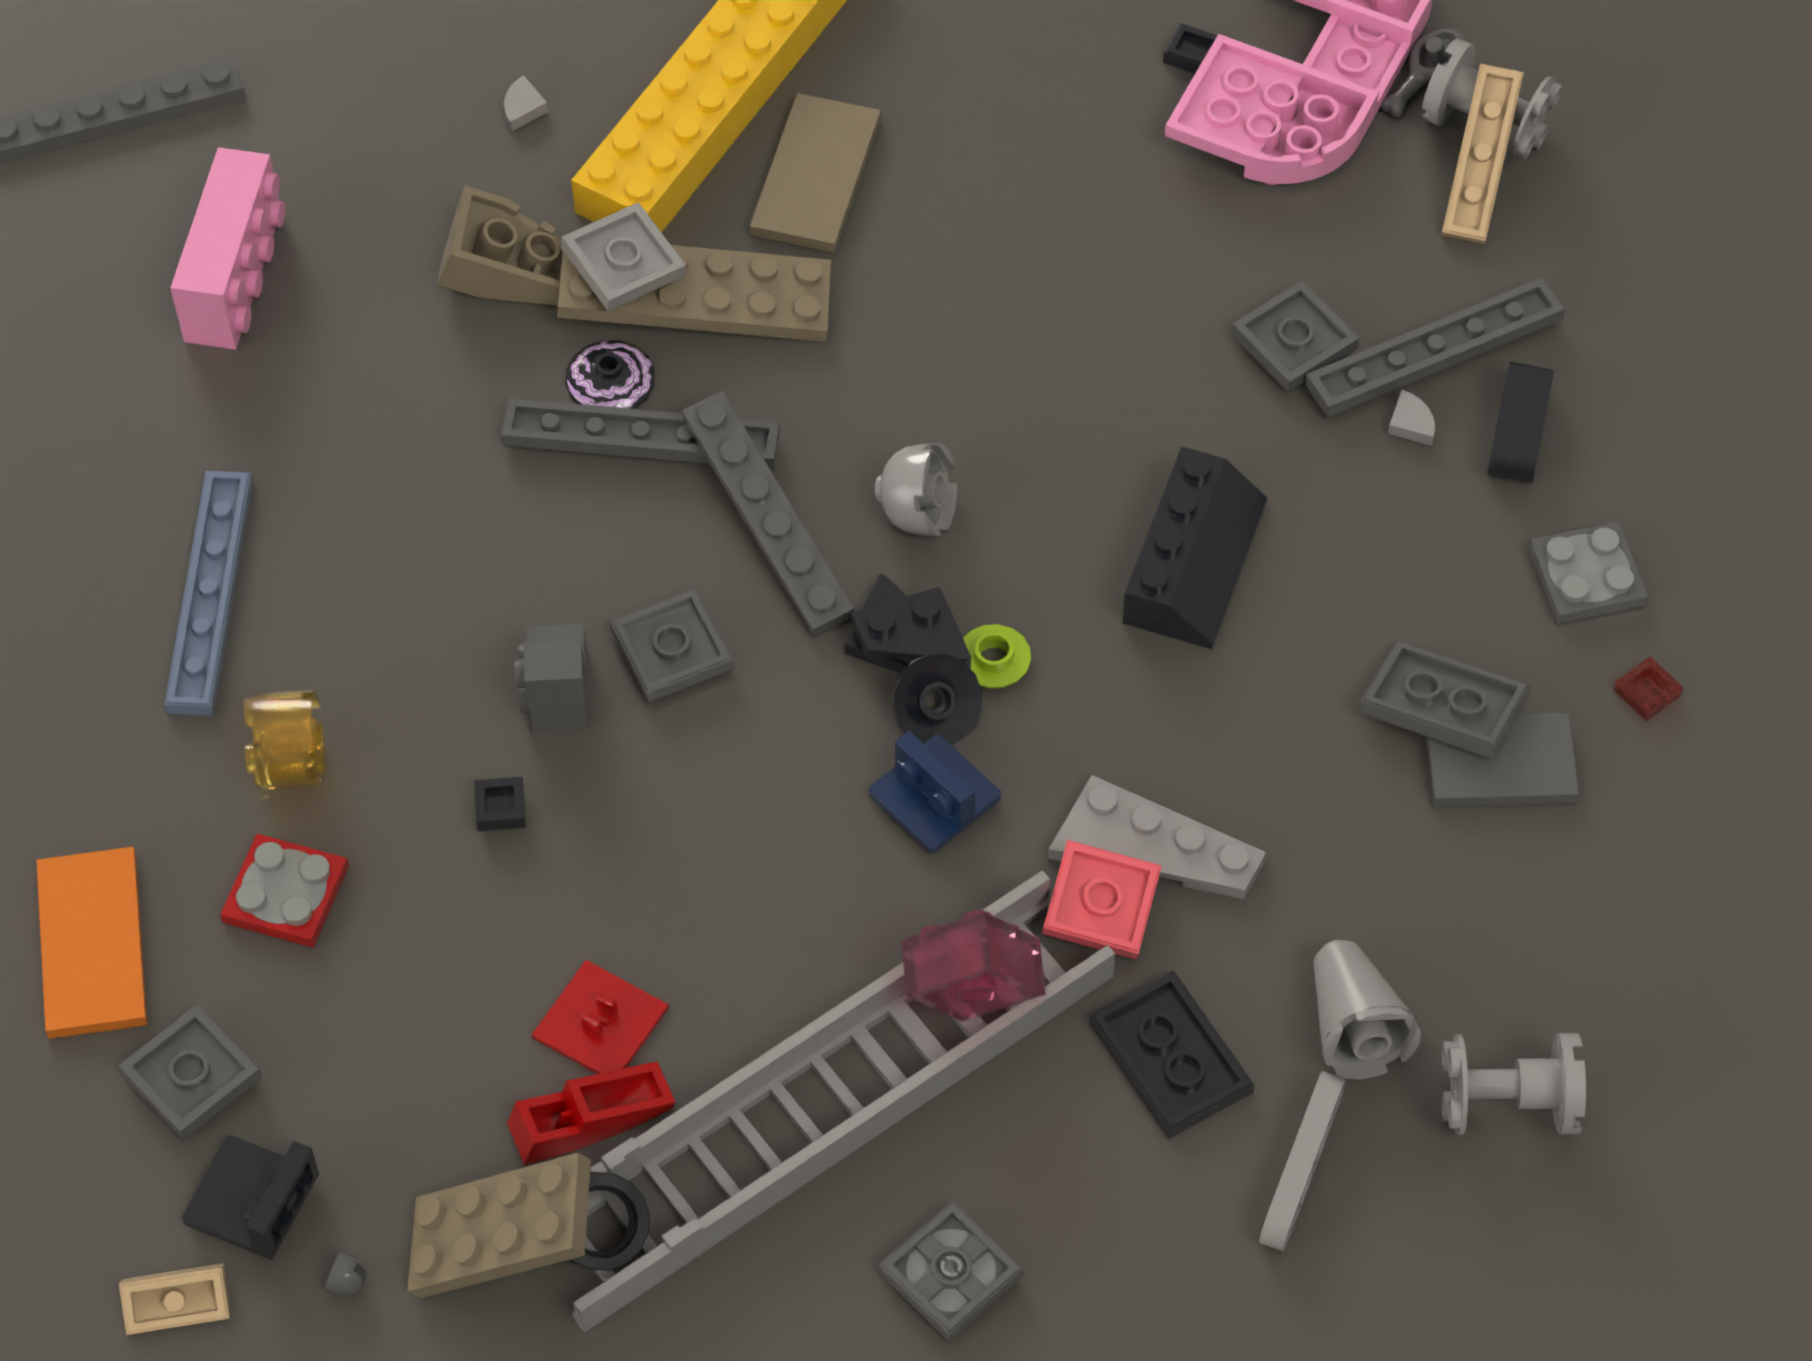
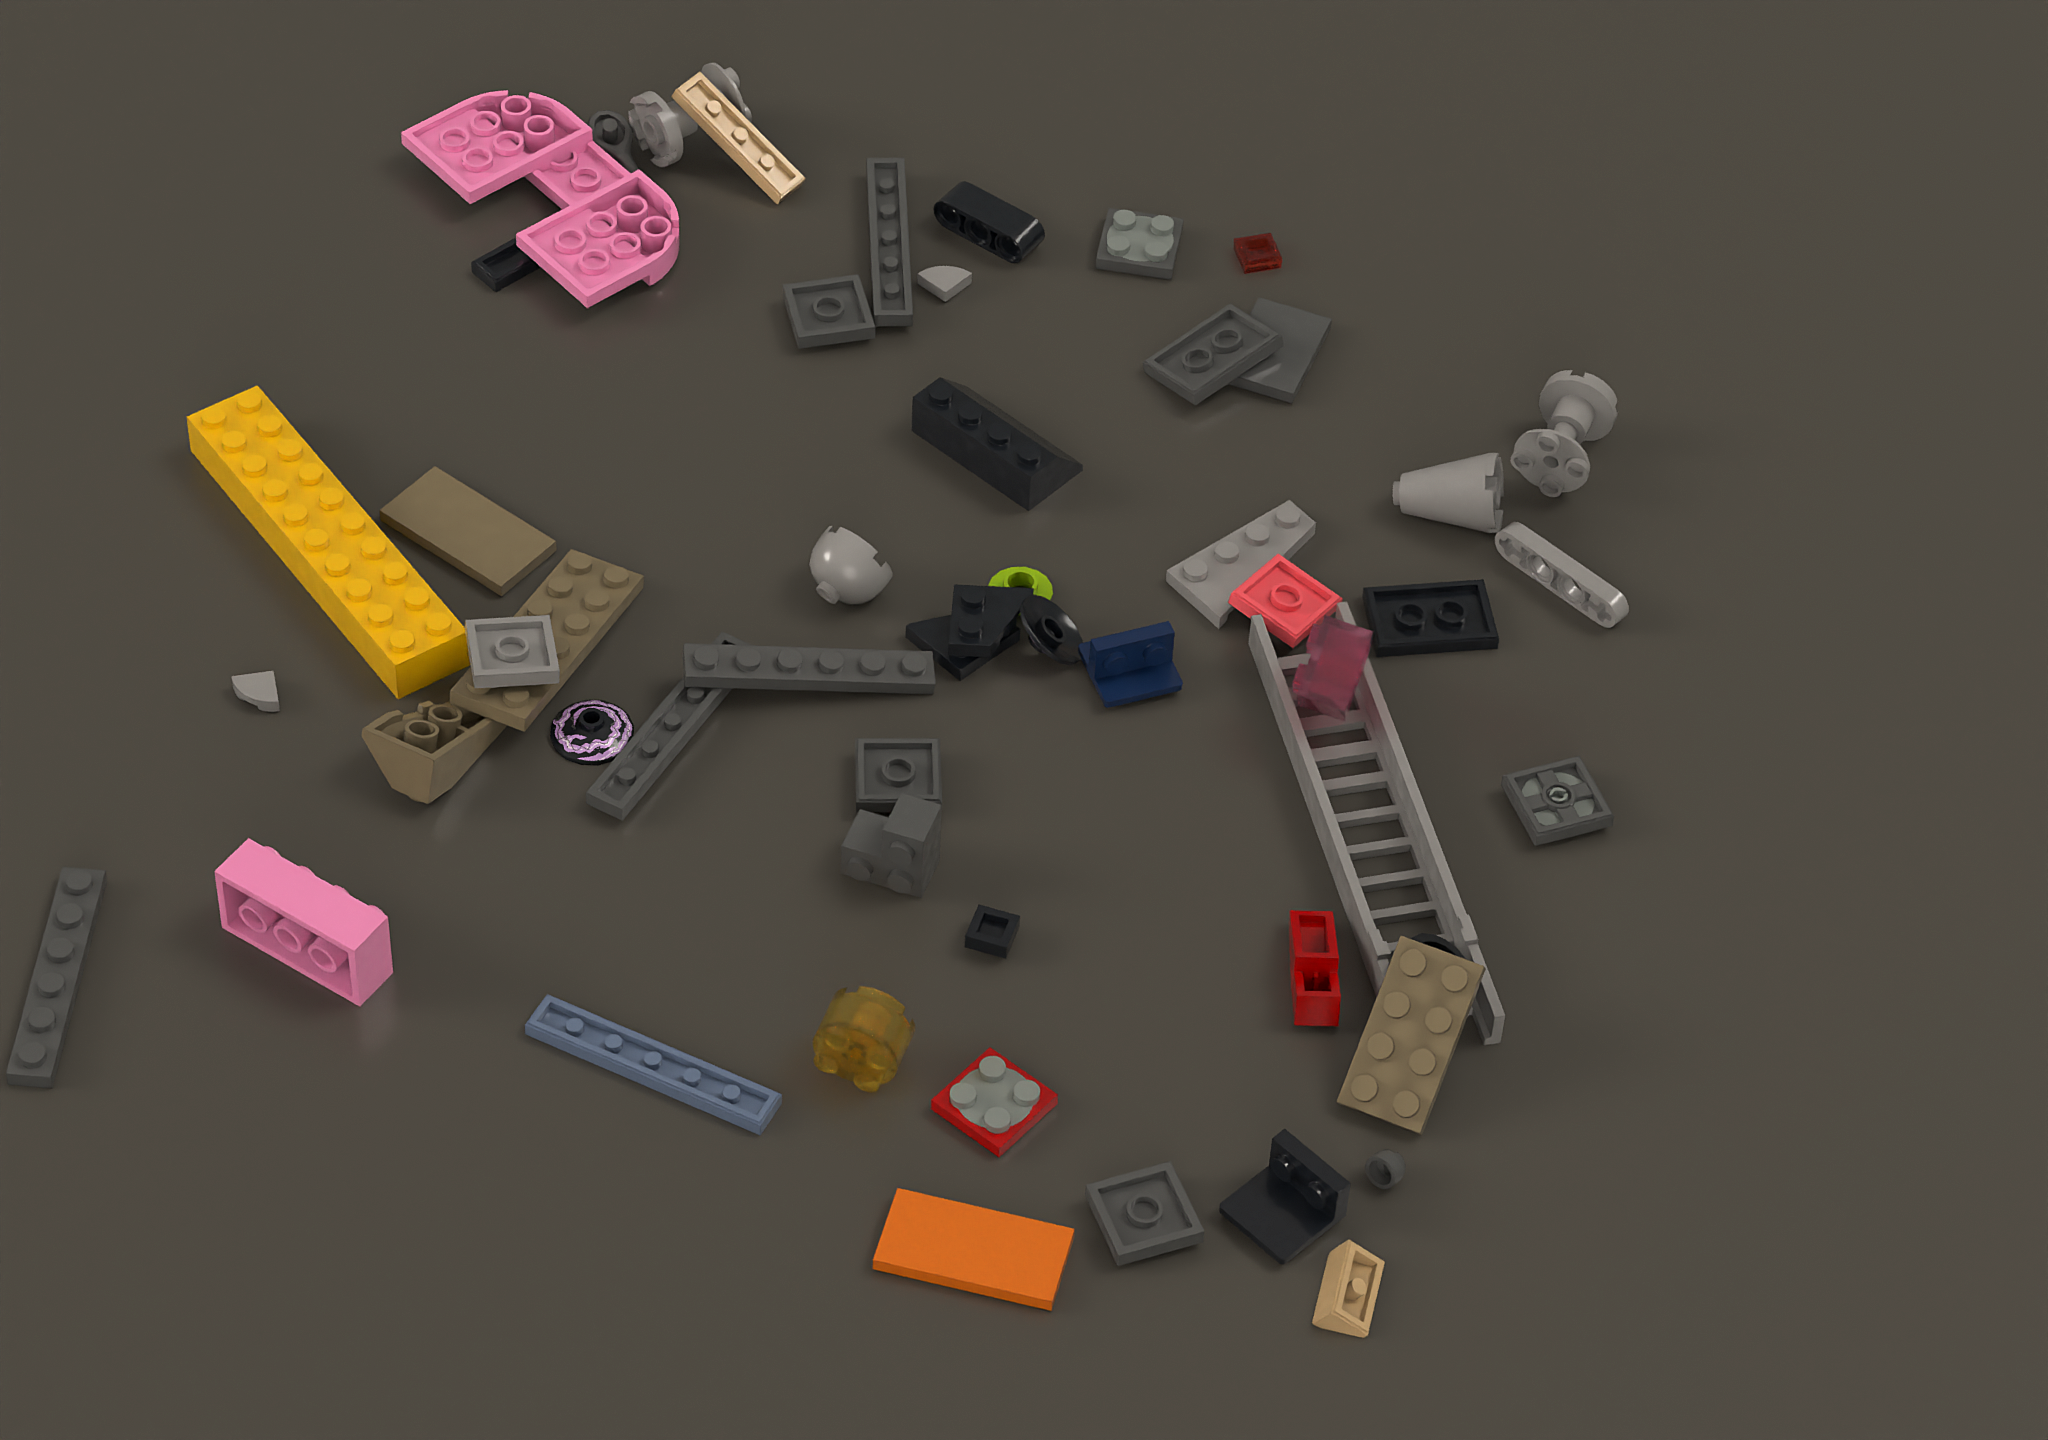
camera: 70 degrees left, 10 degrees down
(600, 1020) = (1225, 941): red piece -> none

